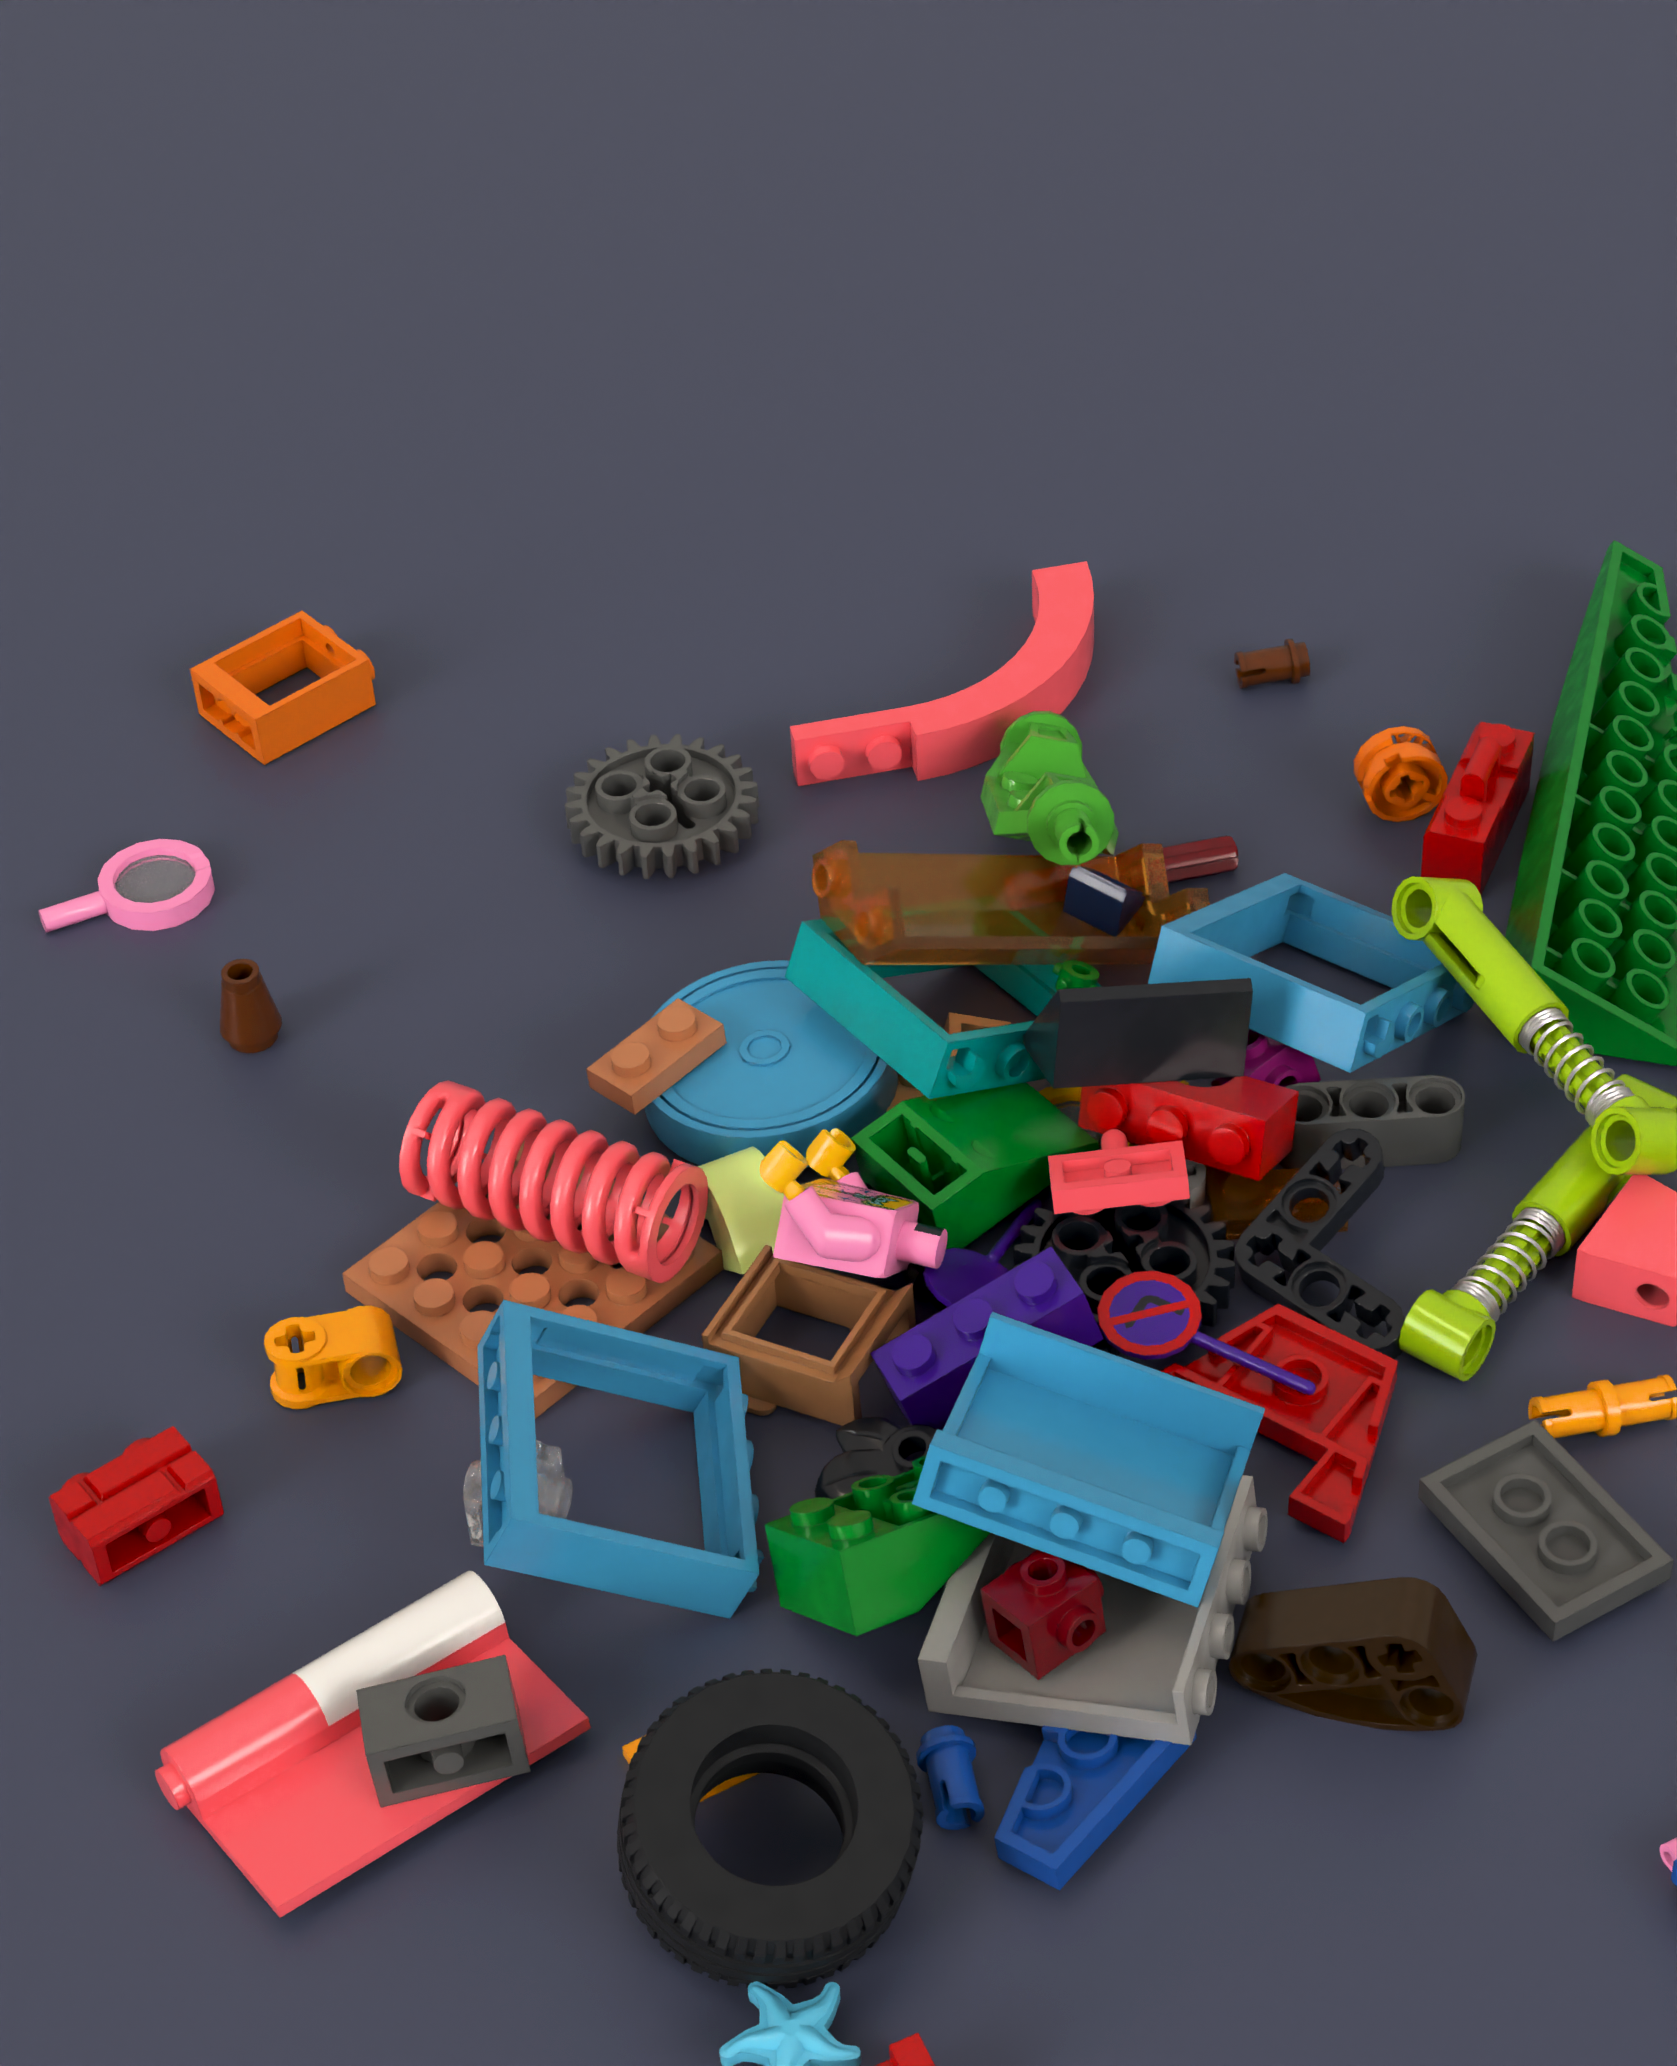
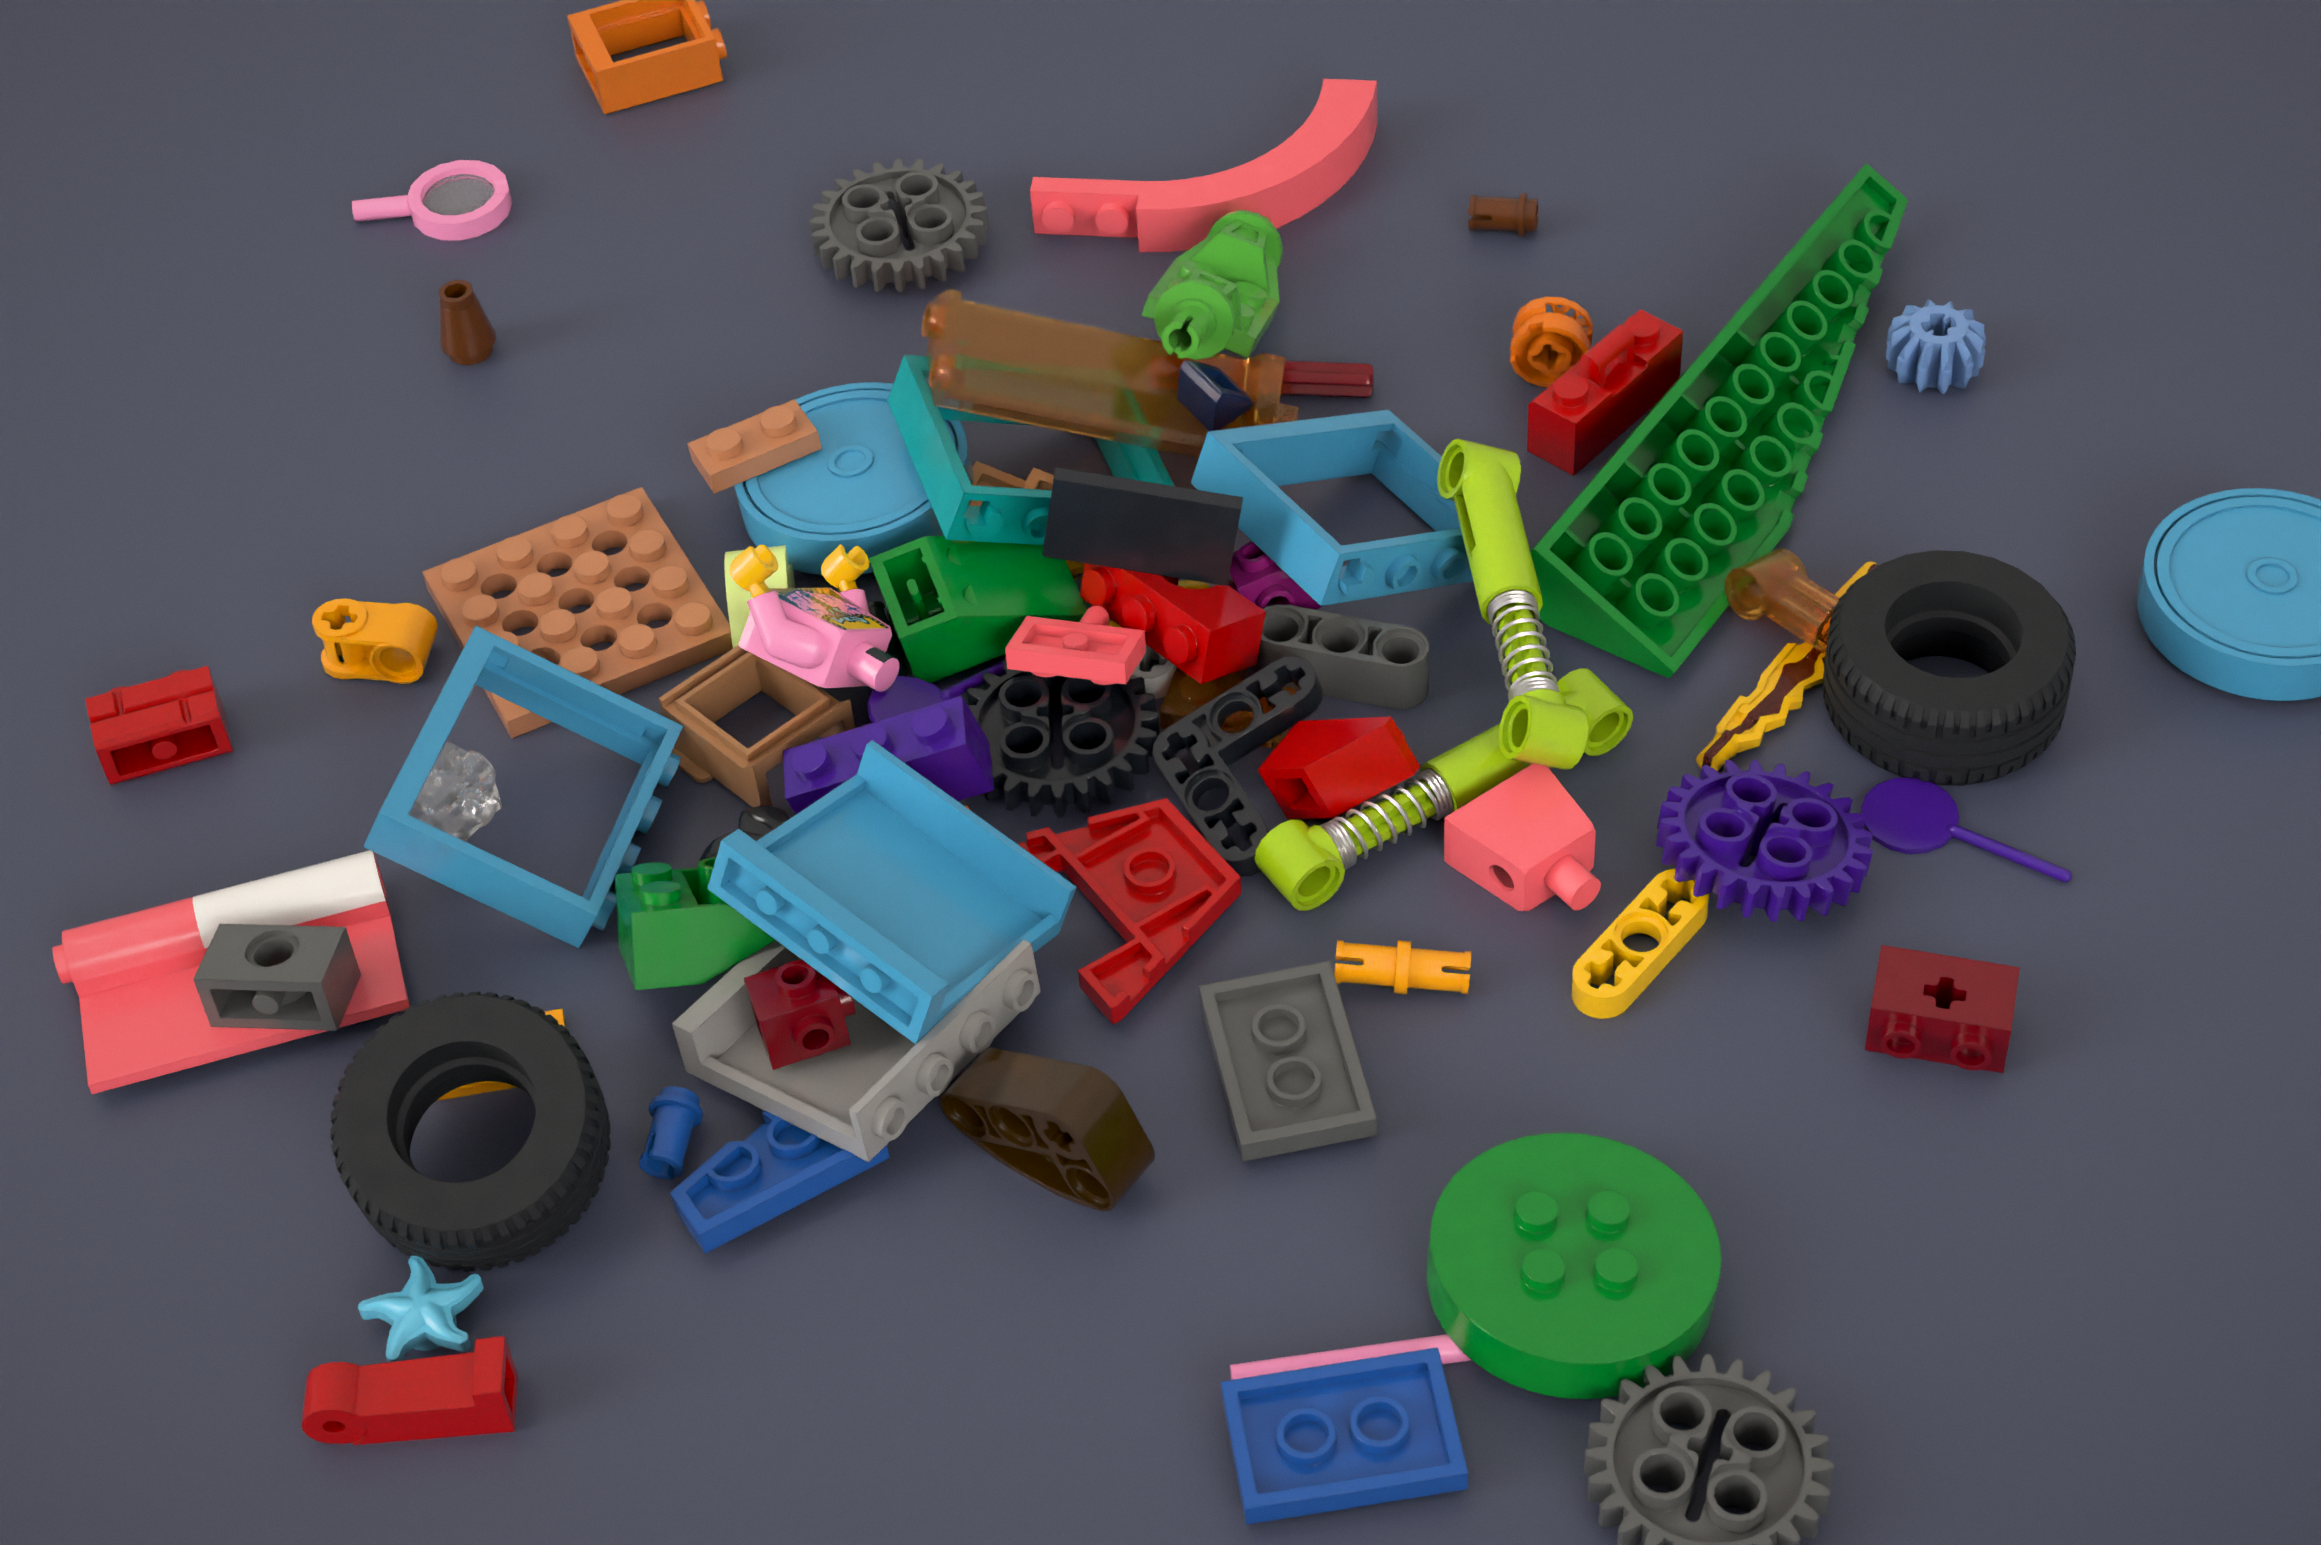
camera: 20 degrees right, 5 degrees up
(457, 1156) = (604, 537): coral piece -> none
(1075, 975) = (1142, 463): green piece -> none
(1161, 1315) = (1049, 780): piece -> none
(1438, 1226) = (1336, 765): none -> red slope

